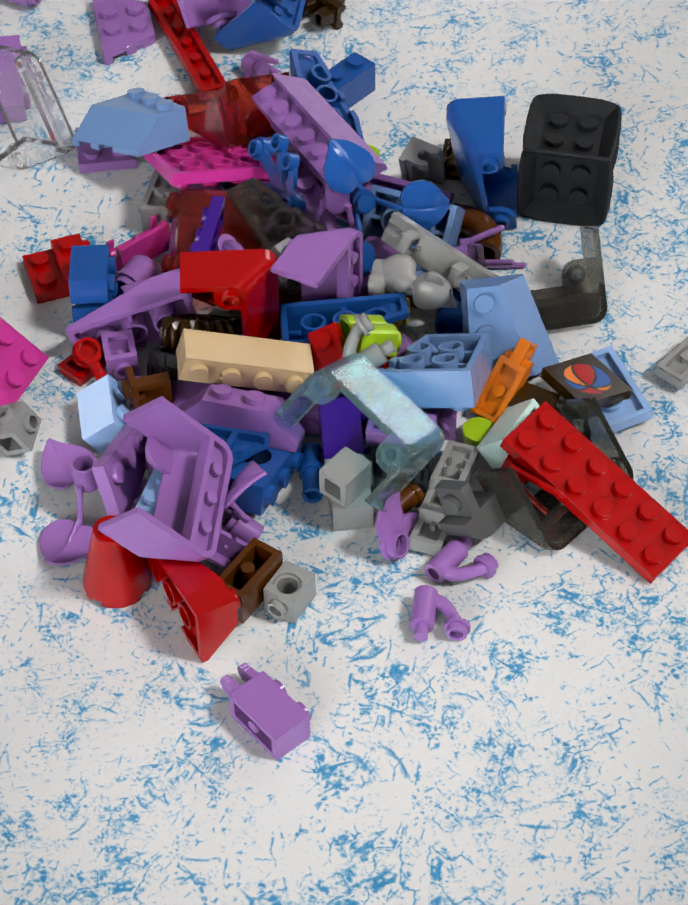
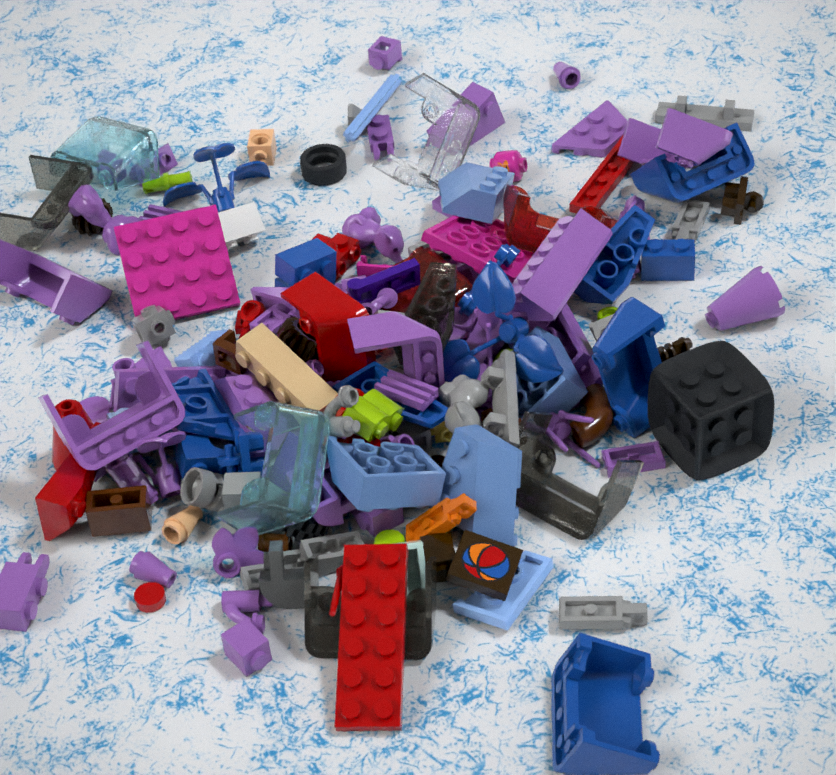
camera: 55 degrees right, 5 degrees down
(98, 90) = (512, 161): none -> dark pink head
(107, 216) = (368, 230): none -> medium lavender animal
(289, 592) = (131, 537): light grey brick -> none
(297, 504) = (202, 489): none -> light grey wheel
(302, 451) = (244, 444): none -> blue hips
(306, 550) = (180, 525): none -> light nougat cone
(309, 39) = (690, 219): none -> light grey hinge
(341, 600) = (151, 569): none -> medium lavender cone
(354, 300) = (407, 390): none -> medium lavender tile
(369, 622) = (150, 597): none -> red tile
(423, 614) = (186, 616): medium lavender plant -> none
(455, 69) = (746, 302): none -> medium lavender cone
(511, 584) = (246, 647): none -> medium lavender brick
(534, 256) = (635, 452): none -> medium lavender tile

